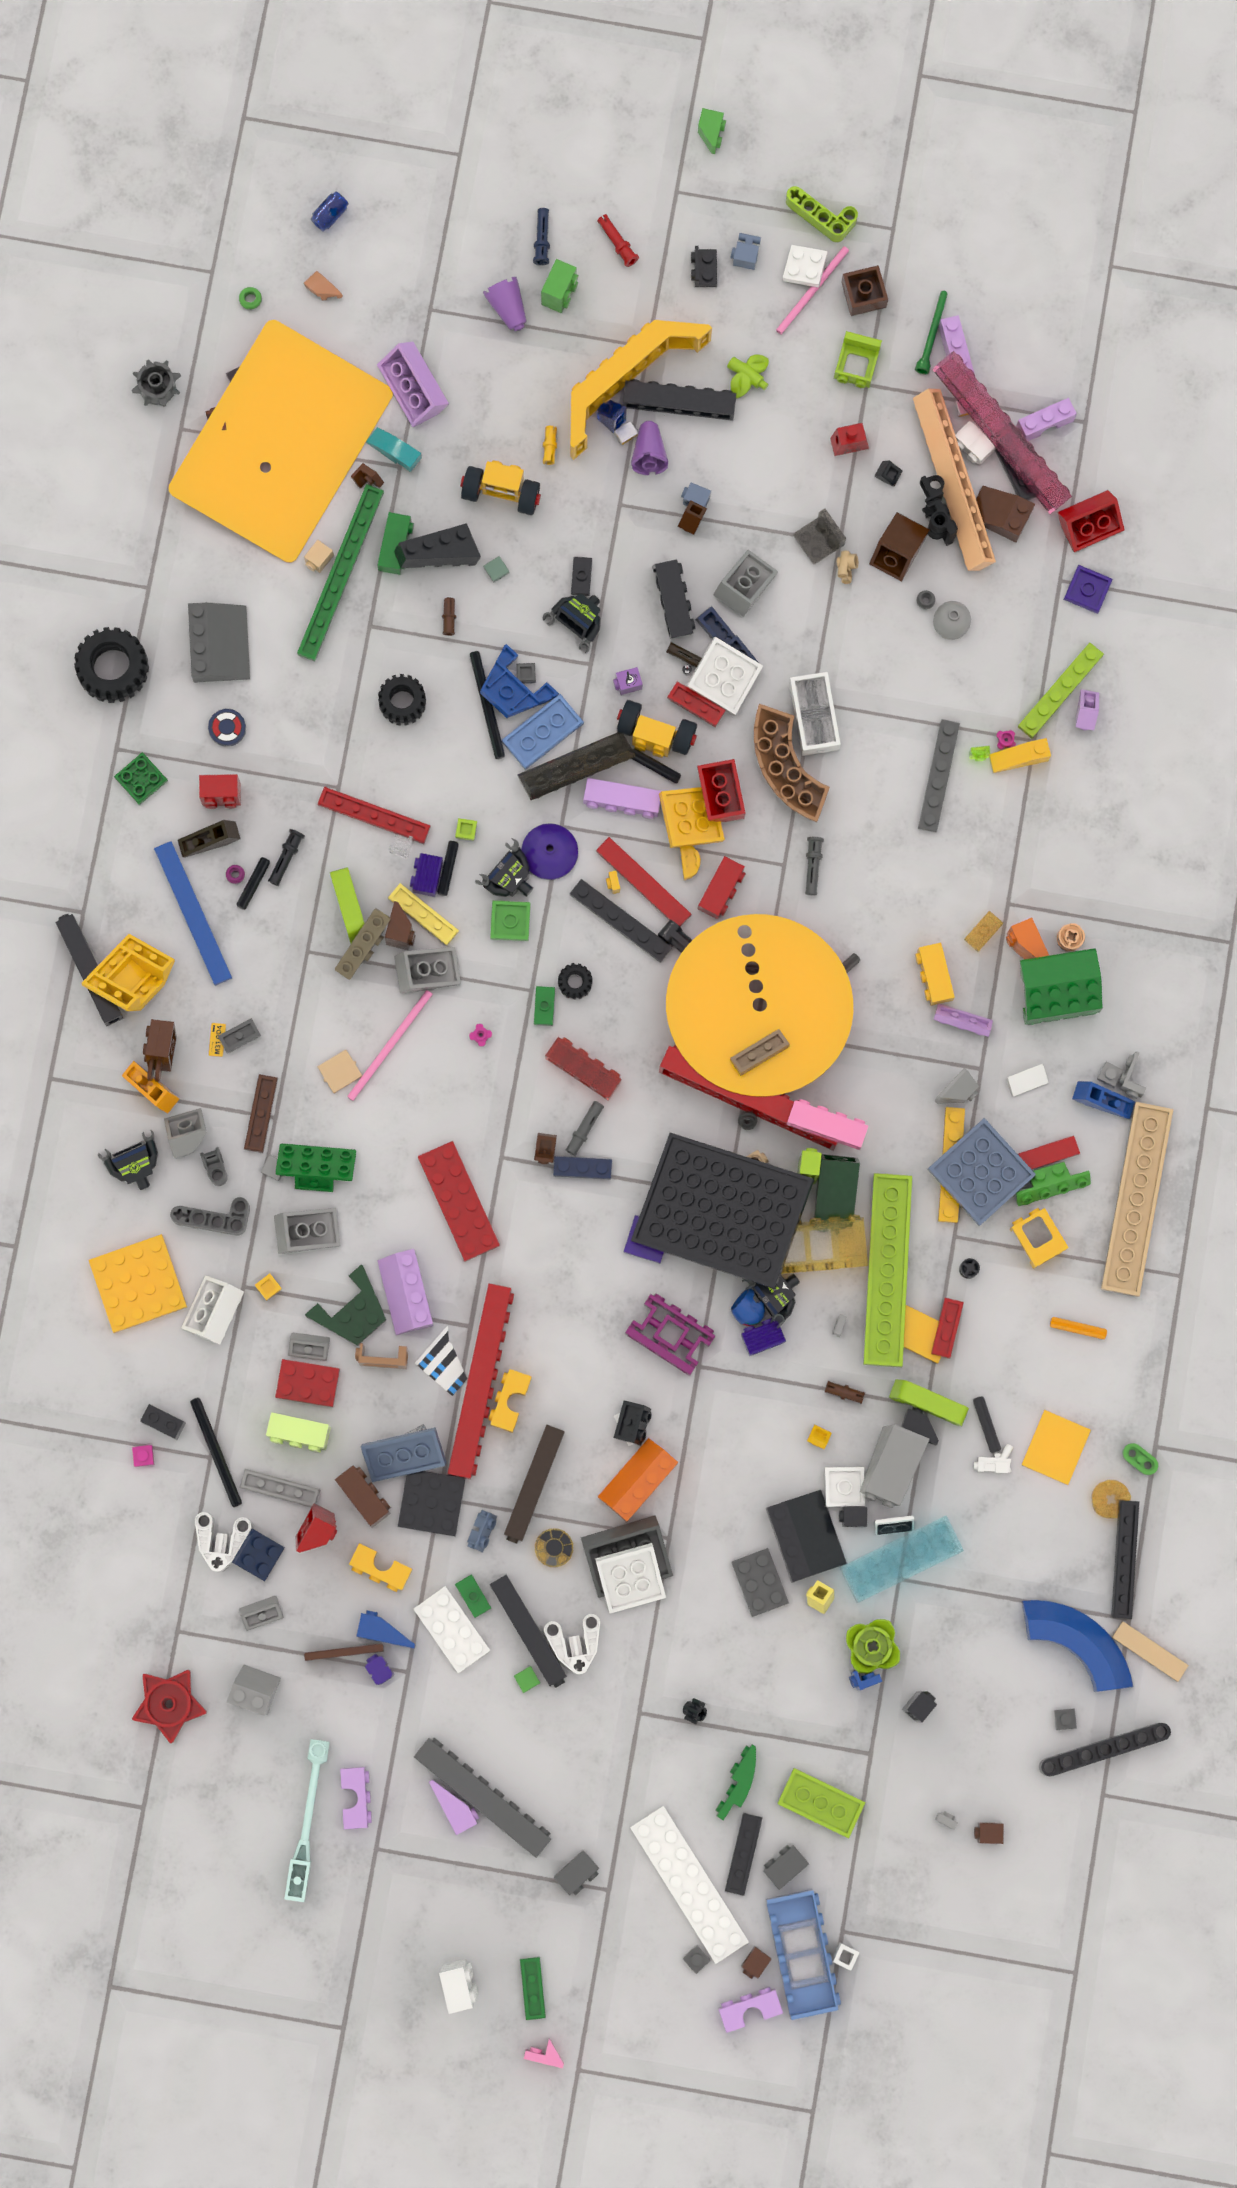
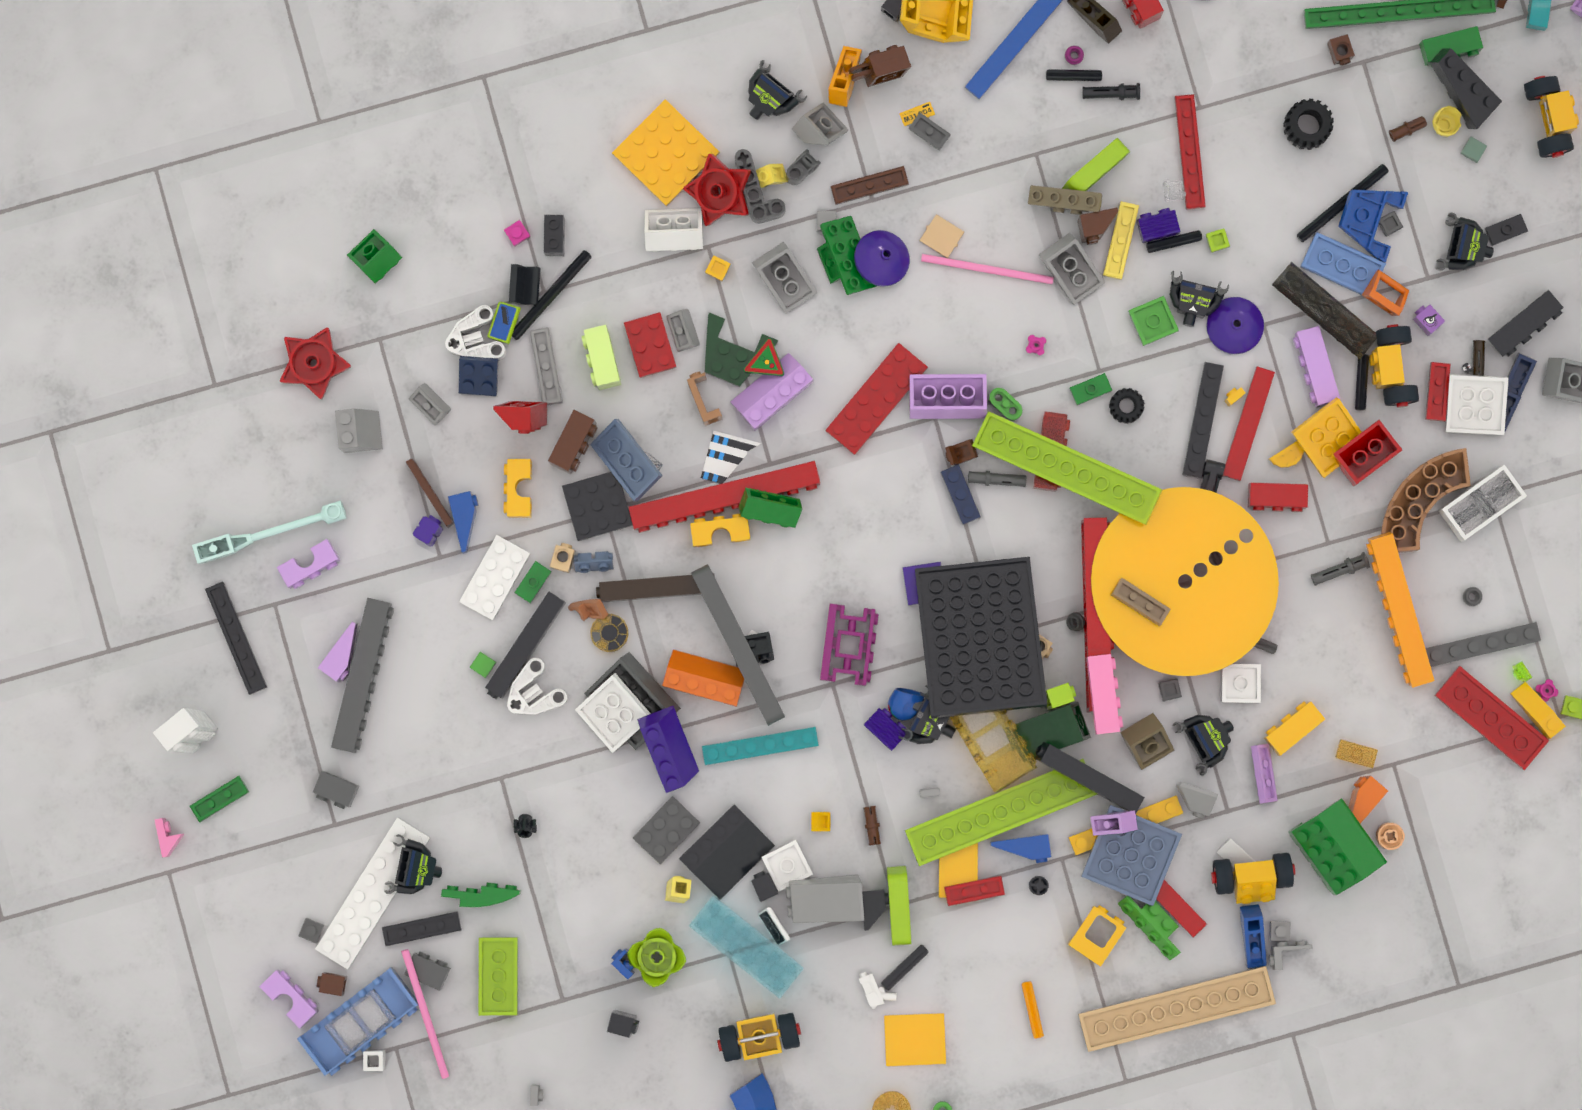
camera: 75 degrees right, 5 degrees up
(98, 1598) = (374, 256): none -> green slope
(193, 1263) = (706, 190): none -> red plate
(195, 1471) = (524, 285): none -> black panel
(207, 1196) = (771, 175): none -> light yellow bracket
(220, 1507) = (503, 322): none -> slope
(336, 1143) = (874, 265): none -> dark purple dish
(344, 633) = (1344, 42): none -> reddish brown brick
(375, 1284) = (765, 361): none -> piece
(390, 1900) = (236, 638): none -> black tile
(460, 579) = (1447, 121): none -> light yellow hair
(466, 1566) = (562, 566): none -> tan brick
(489, 1135) = (948, 396): none -> lavender slope
(512, 1344) = (770, 507): none -> green brick
(520, 1087) = (1005, 404): none -> bright green plate
(523, 1554) = (589, 608): none -> nougat slope
(587, 716) = (1372, 295): none -> orange tile
(606, 1059) = (1067, 468): none -> lime plate
(622, 1433) = (738, 645): none -> dark grey beam
(686, 1832) = (414, 869): none -> black torso
(687, 1542) = (668, 748): none -> dark purple slope
(723, 1459) = (760, 746): none -> teal plate
(824, 1887) = (425, 1013): none -> bright pink piece
(848, 1067) = (1169, 689): none -> dark grey tile
(873, 1001) = (1241, 683): none -> white plate
(875, 829) = (1400, 609): none -> light orange brick
(885, 1108) = (1147, 741): none -> dark tan slope
(892, 757) = (1478, 596): none -> dark grey plate
(894, 1175) = (1088, 777): none -> black brick
(909, 1053) = (1208, 738): none -> black torso
(931, 1259) = (1030, 847): none -> blue slope
(946, 1172) = (1114, 823): none -> lavender slope
(989, 1586) = (759, 1036): none -> brick
(1007, 798) = (1491, 718): none -> red plate
(1054, 1075) = (1253, 880): none -> brick

